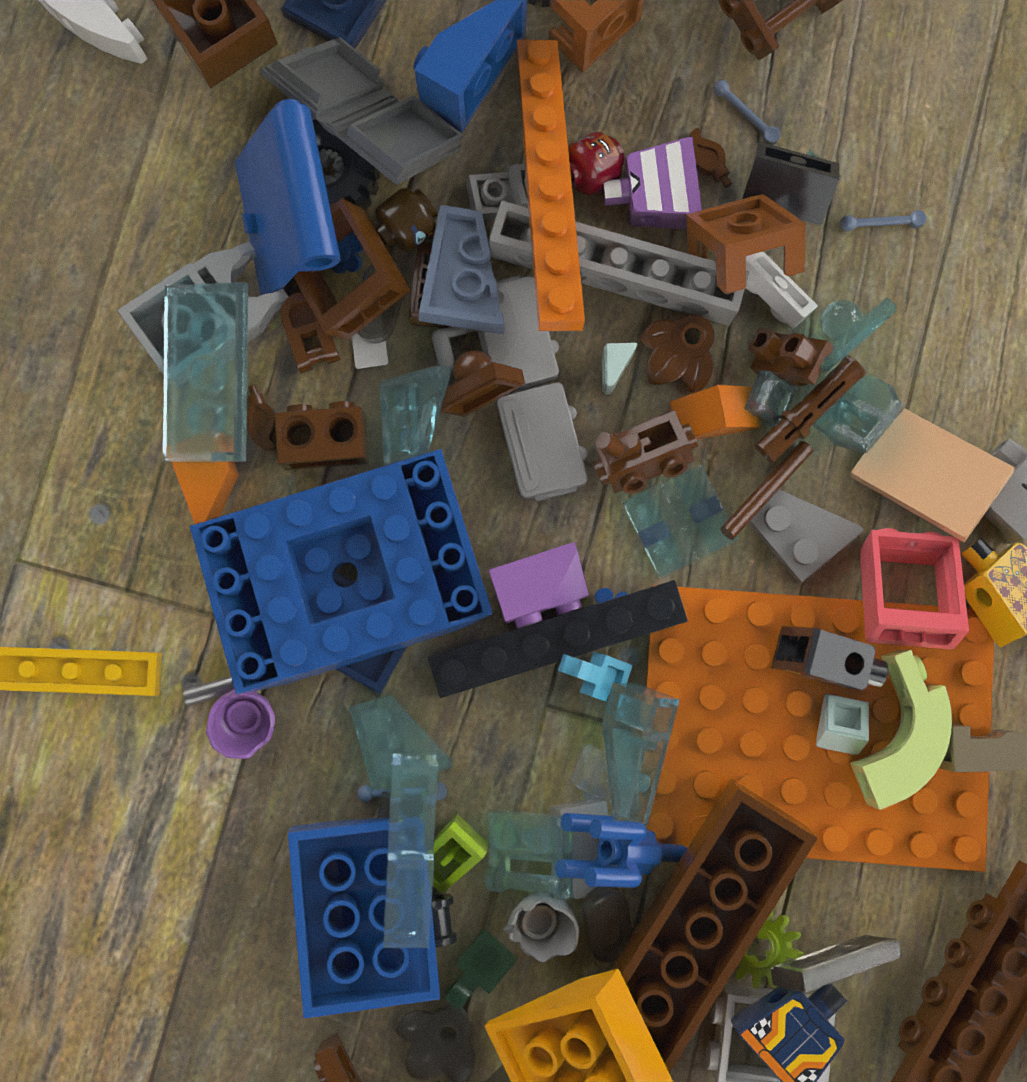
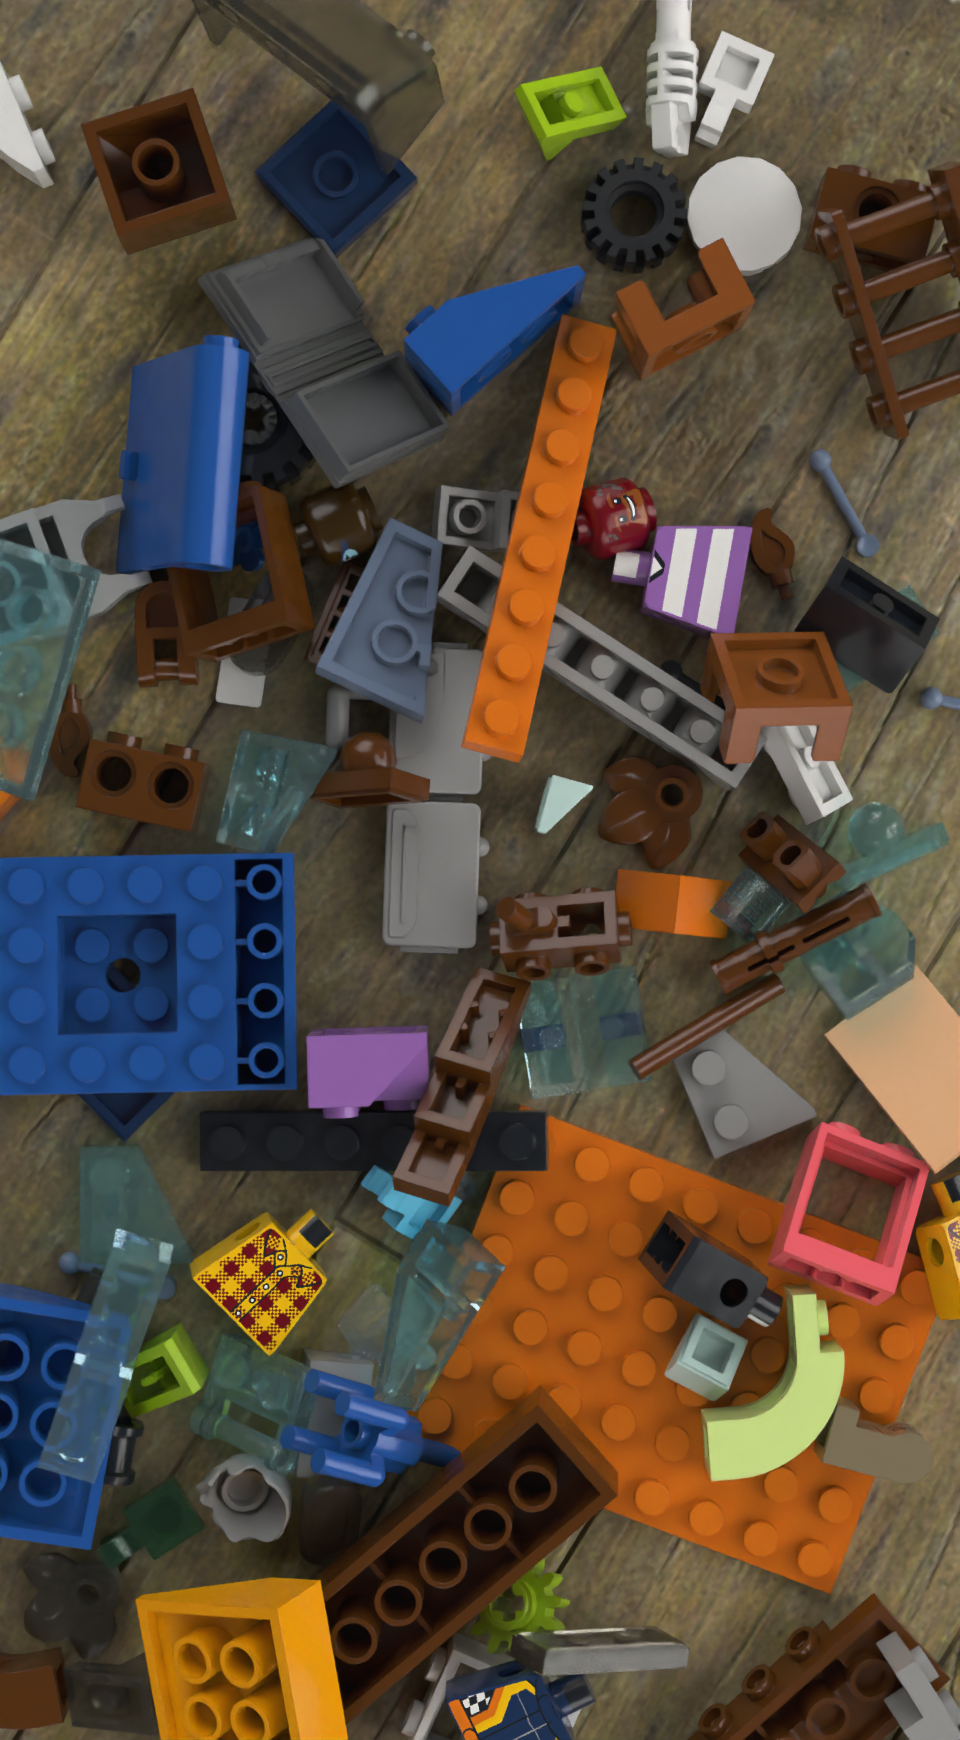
camera: 15 degrees right, 5 degrees up
(509, 758) = (265, 1275): none -> torso
(609, 580) = (462, 1086): none -> reddish brown slope

